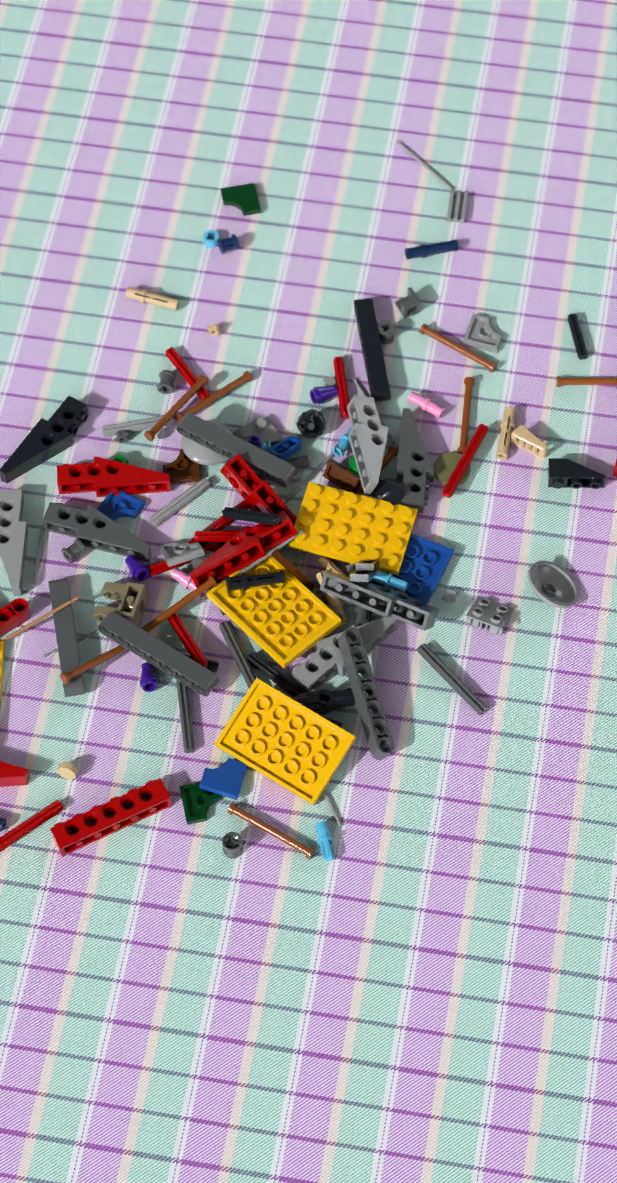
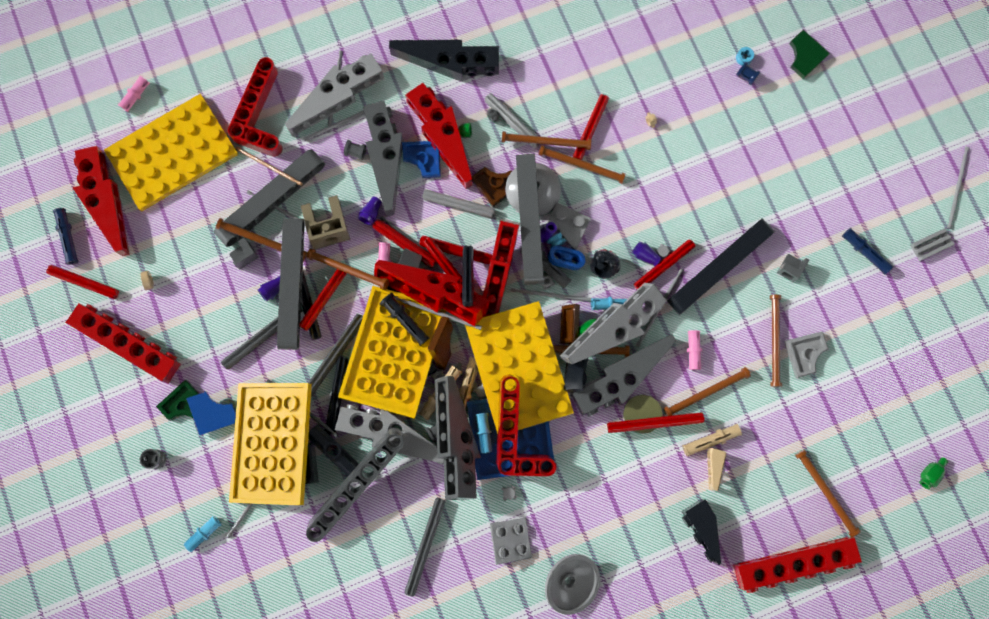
camera: 55 degrees right, 20 degrees up
(100, 683) = (244, 254): none -> dark grey panel
(132, 293) = (645, 41): tan pin -> none
(166, 380) = (569, 115): dark grey bush -> none
(177, 553) = (402, 237): light grey tile -> none
(309, 852) = (187, 482): dark orange bar -> none
(364, 571) = (474, 409): slope -> none
(383, 329) = (749, 262): dark grey bush -> none
(405, 554) = (512, 434): none -> red beam
(577, 336) = (863, 441): black axle -> none

